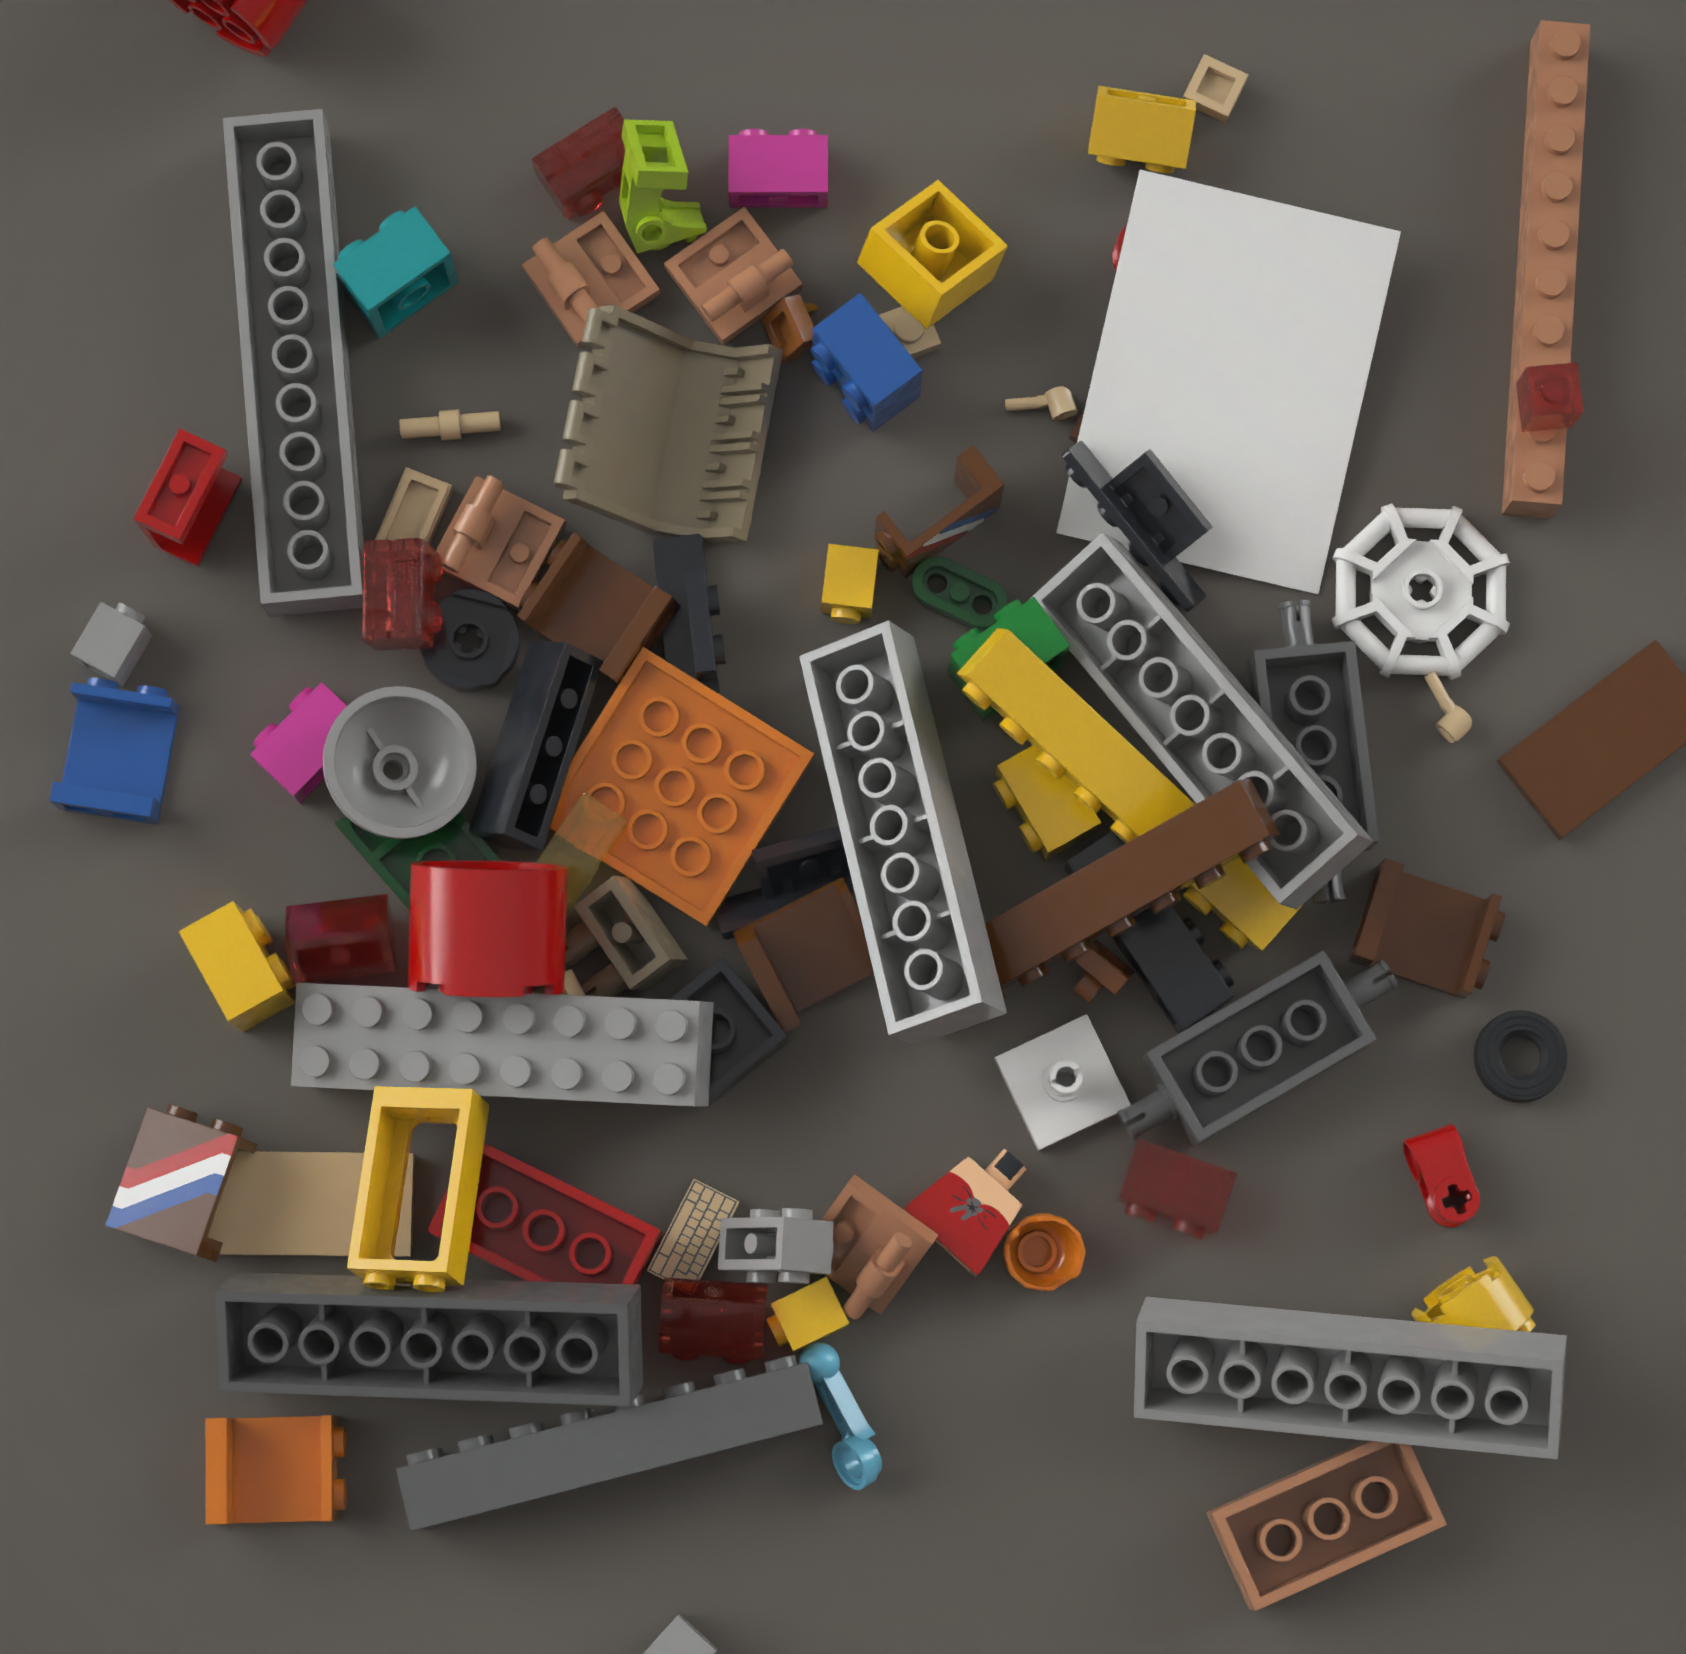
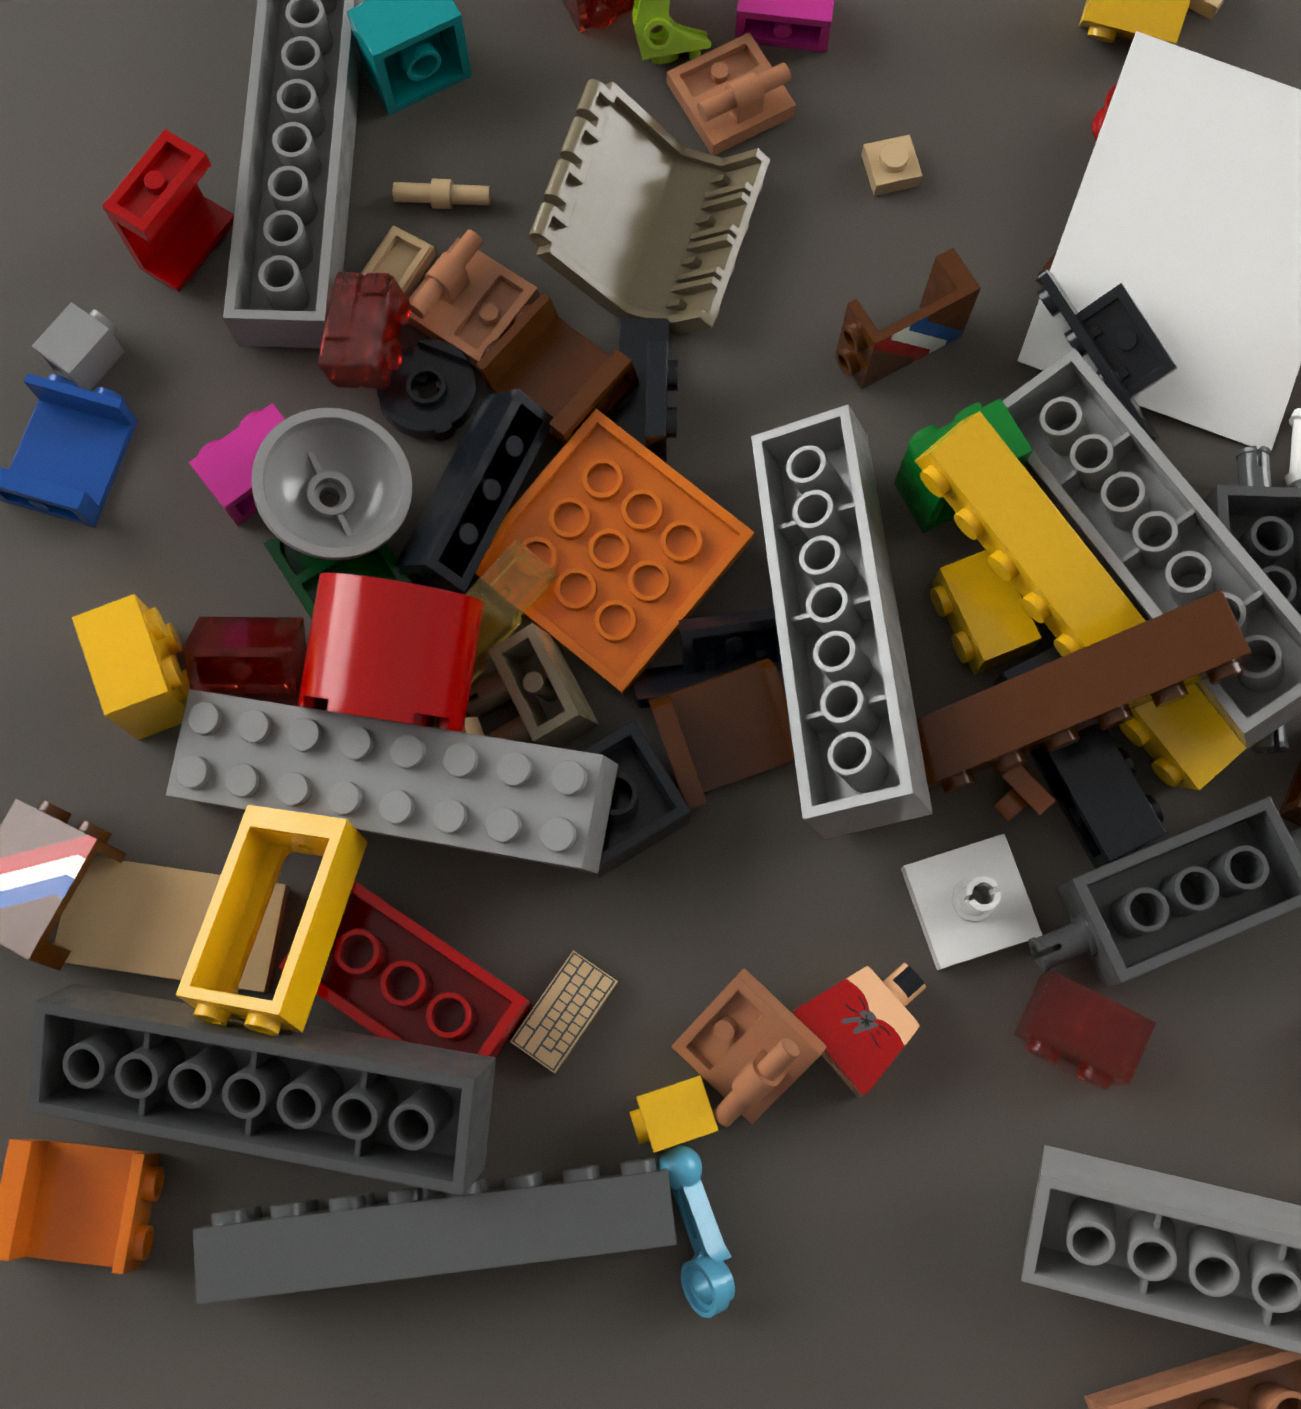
camera: 10 degrees right, 5 degrees down
(588, 271) = (595, 55): nougat plate -> none
(713, 1319) = (571, 1105): clear red brick -> none
(776, 1246) = (651, 1033): light grey brick -> none
(790, 326) = (782, 143): dark orange tile -> none
(849, 583) = (808, 378): yellow brick -> none
(865, 363) = (850, 174): blue brick -> none
(932, 254) = (925, 87): yellow brick -> none
(961, 591) = (918, 399): dark green plate -> none
(1043, 1252) = (937, 1080): orange hair -> none
(1058, 400) = (1030, 240): tan hand -> none

